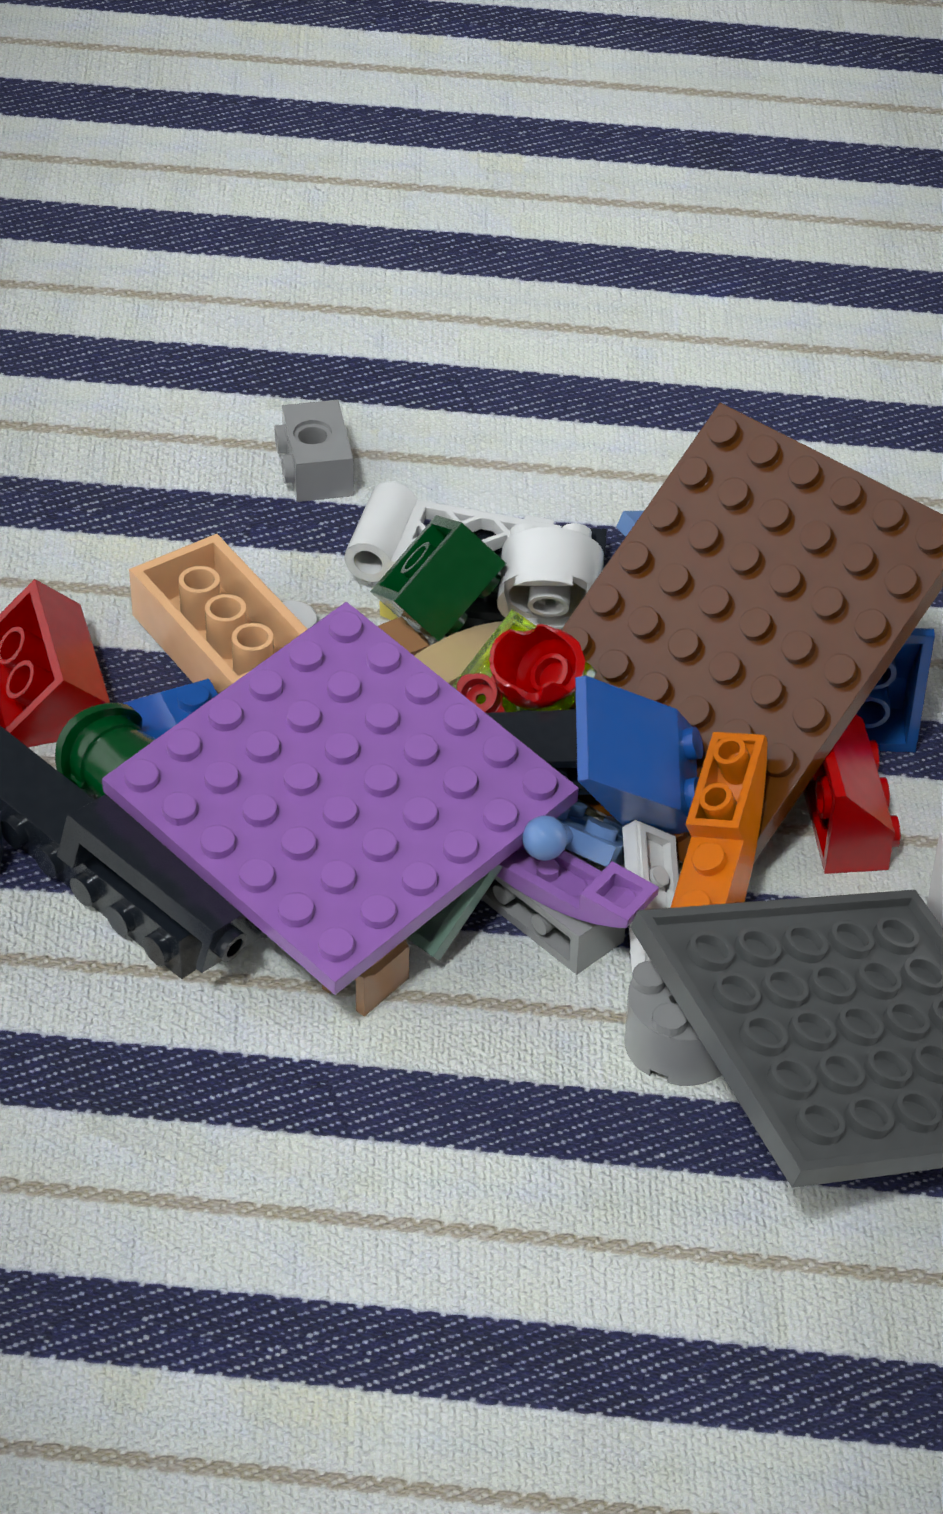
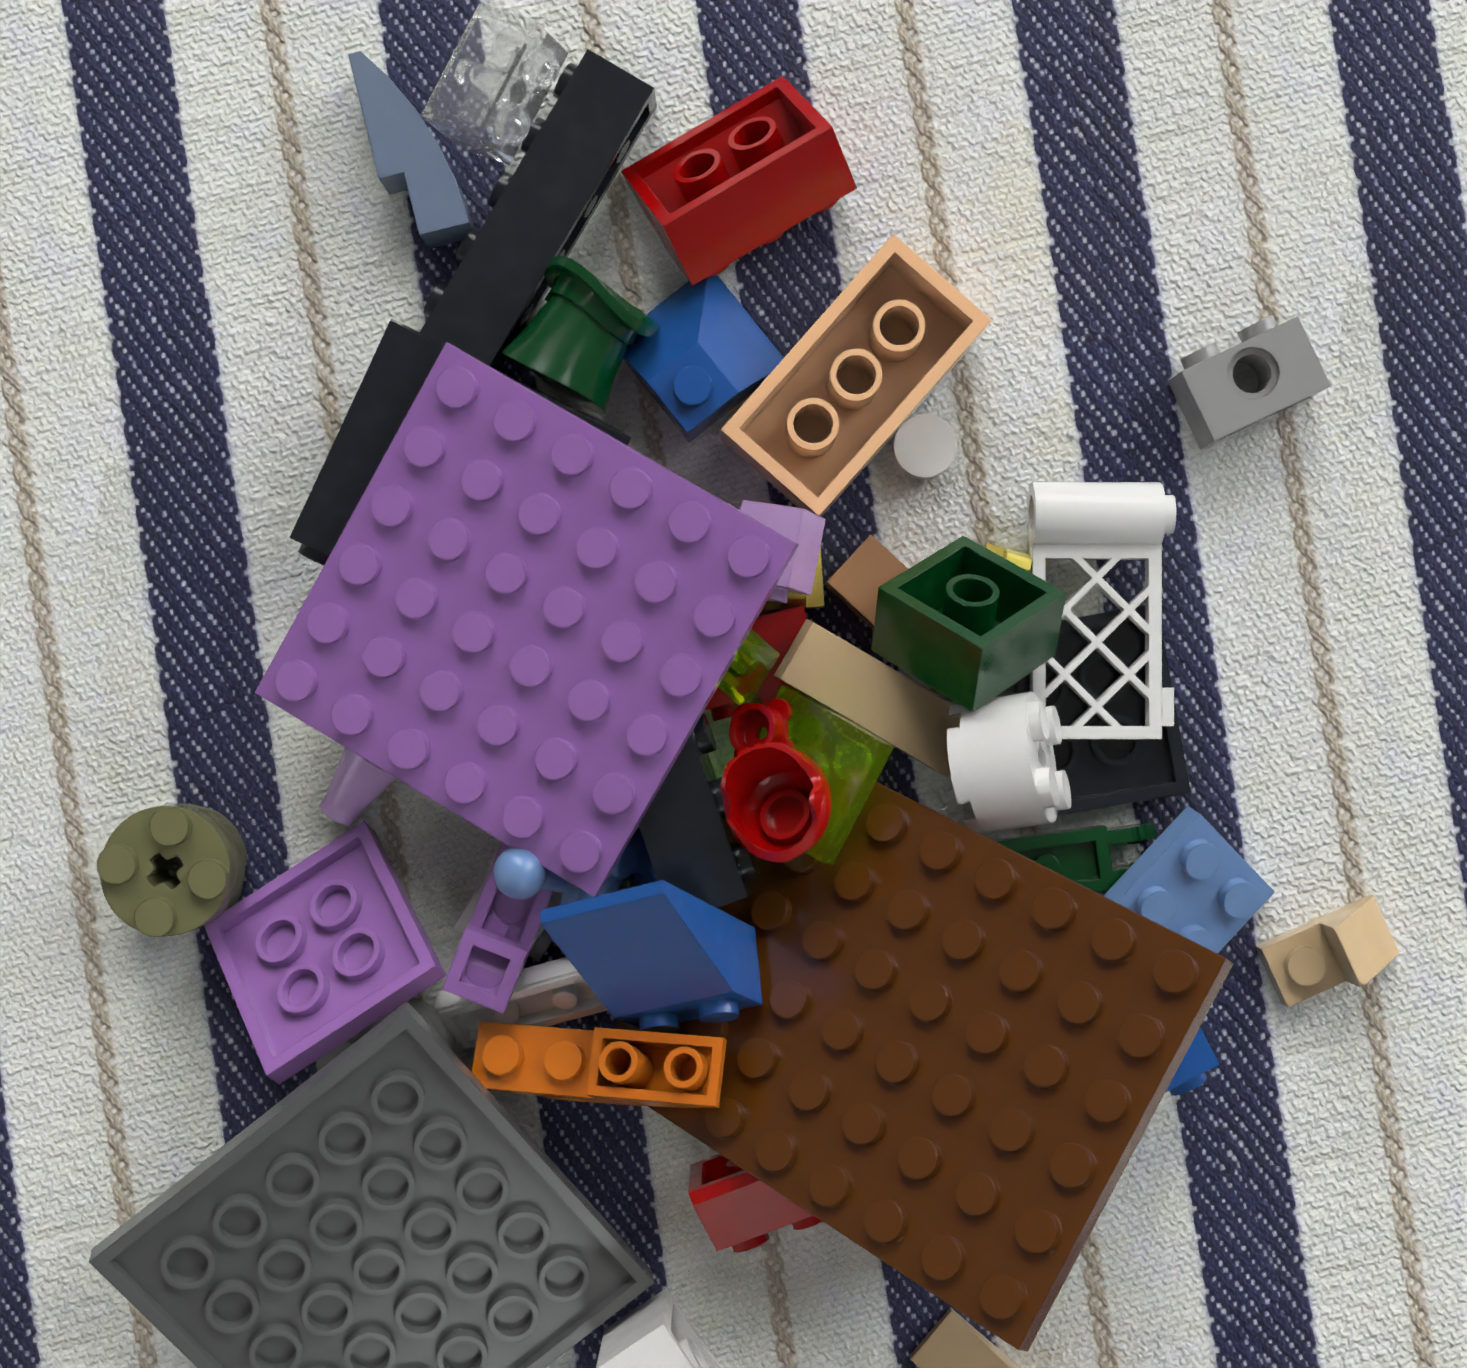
camera: 75 degrees right, 45 degrees up
(426, 991) = (354, 788): none -> lavender cone
(466, 1125) = (137, 863): none -> olive brick
(572, 1022) = (323, 952): none -> medium lavender plate

